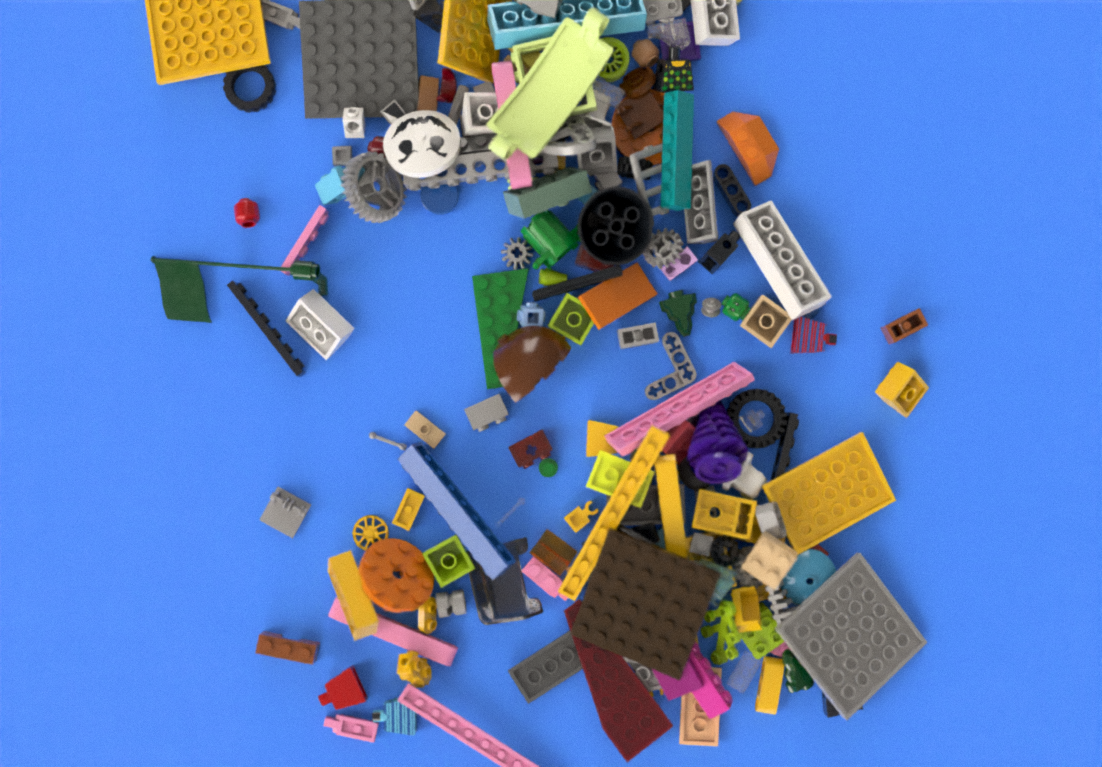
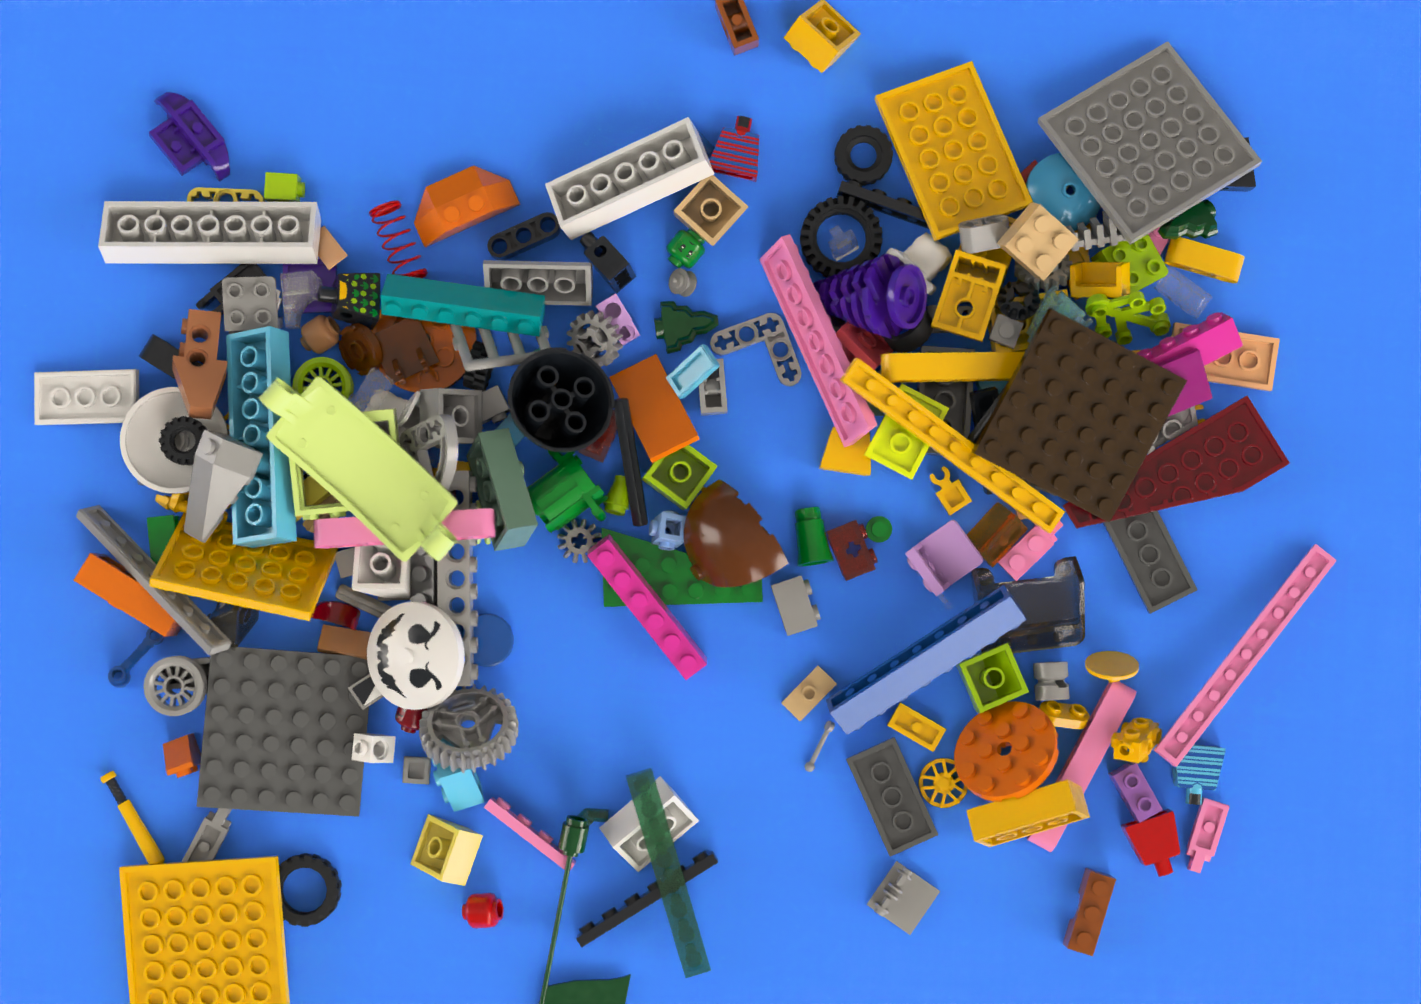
camera: 80 degrees left, 0 degrees up
(285, 340) = (668, 872): none -> clear green plate
(286, 182) = (446, 850): none -> light yellow slope
(356, 496) = (892, 796): none -> dark grey plate
(377, 672) = (1135, 791): none -> medium lavender brick
(466, 646) = (1112, 665): none -> yellow piece
(474, 306) = (647, 607): none -> dark pink brick
(532, 516) = (944, 557): none -> lavender bracket
(536, 419) = (811, 538): none -> green plant
(647, 320) = (692, 371): none -> medium azure tile
(706, 53) = (329, 250): none -> light nougat sticker
(737, 85) = (387, 208): none -> red piece
(747, 15) = (283, 187): none -> lime brick
(832, 425) = (868, 135): none -> black tyre

